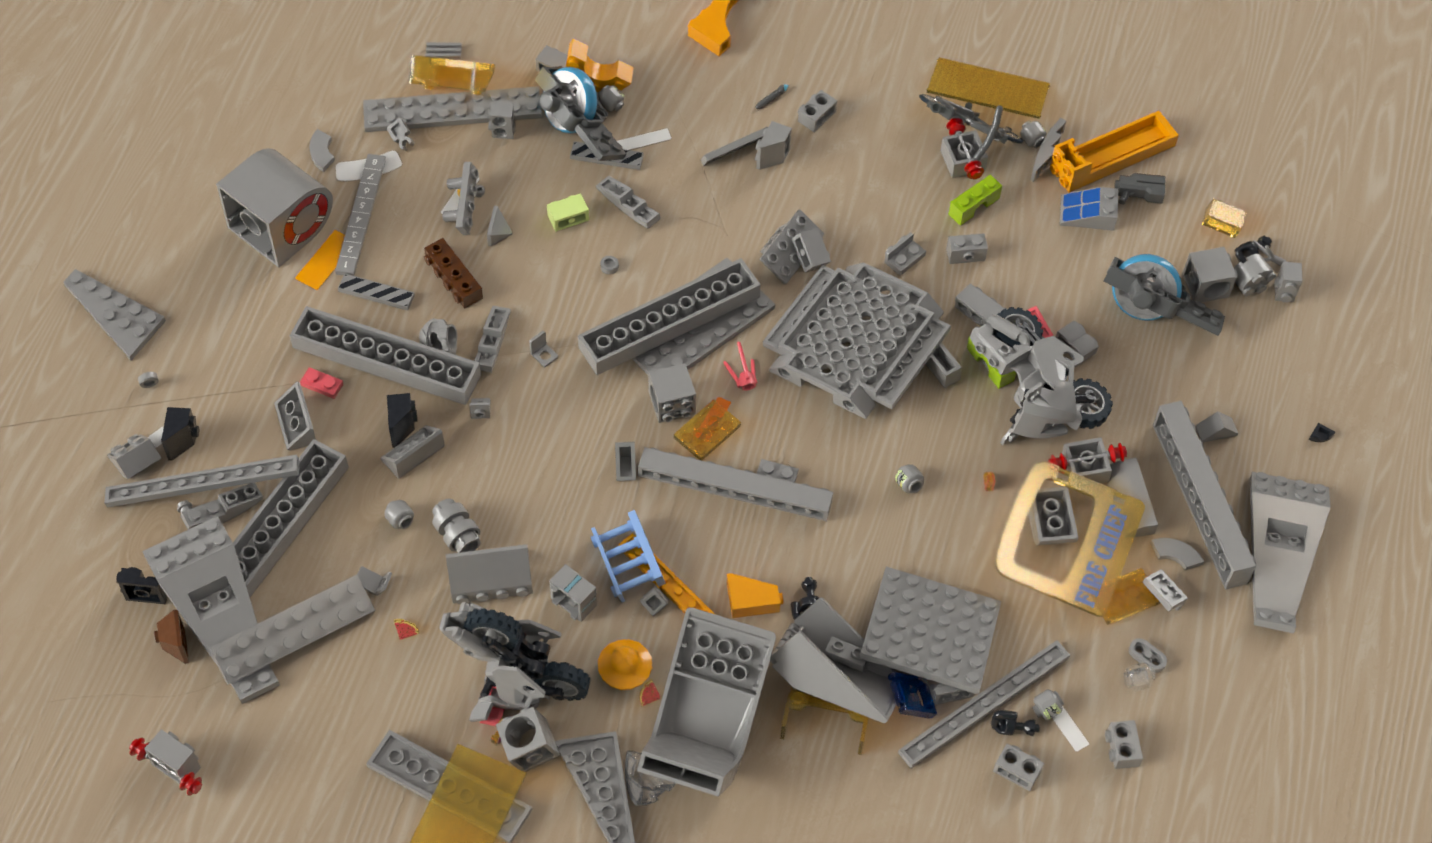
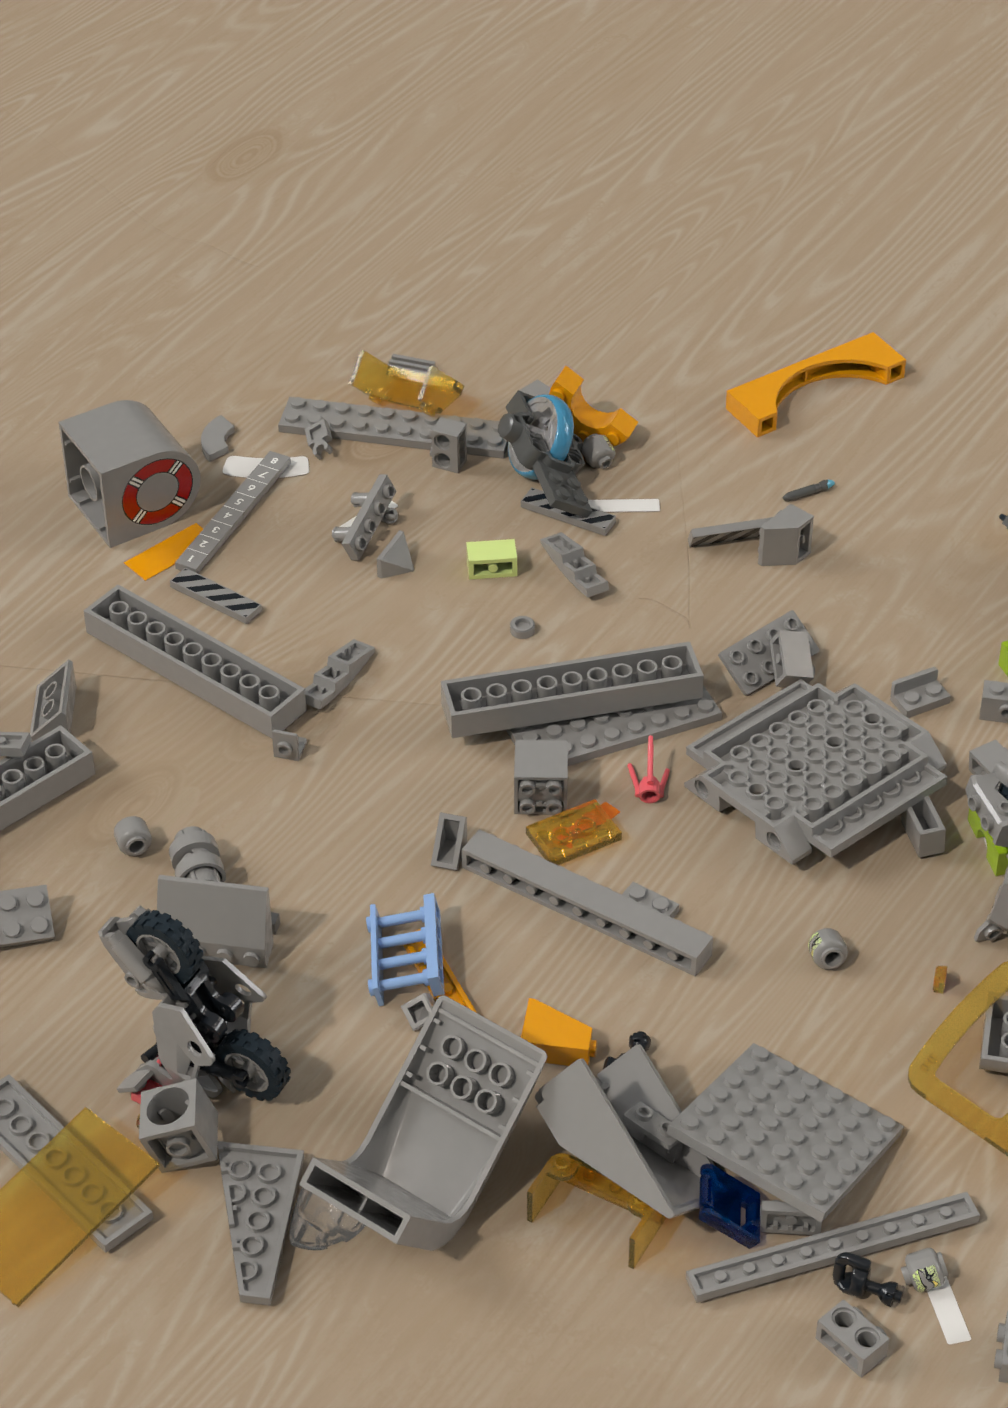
camera: 20 degrees right, 15 degrees down
(321, 383) = (104, 677): coral plate -> none
(372, 581) = (64, 902): light grey bracket -> none
(401, 417) = (180, 729): black slope -> none
(405, 628) = (84, 967): tile -> none
(414, 450) = (185, 774): light grey slope -> none
(439, 334) = (271, 651): light grey helmet -> none
(453, 273) = (318, 594): reddish brown brick -> none
(538, 346) = (393, 693): light grey bracket -> none
(573, 593) = (314, 972): light grey container -> none
(624, 664) = (348, 1072): light orange helmet -> none
(648, 693) = (365, 1119): tile -> none
(817, 110) = (861, 514): light grey brick -> none

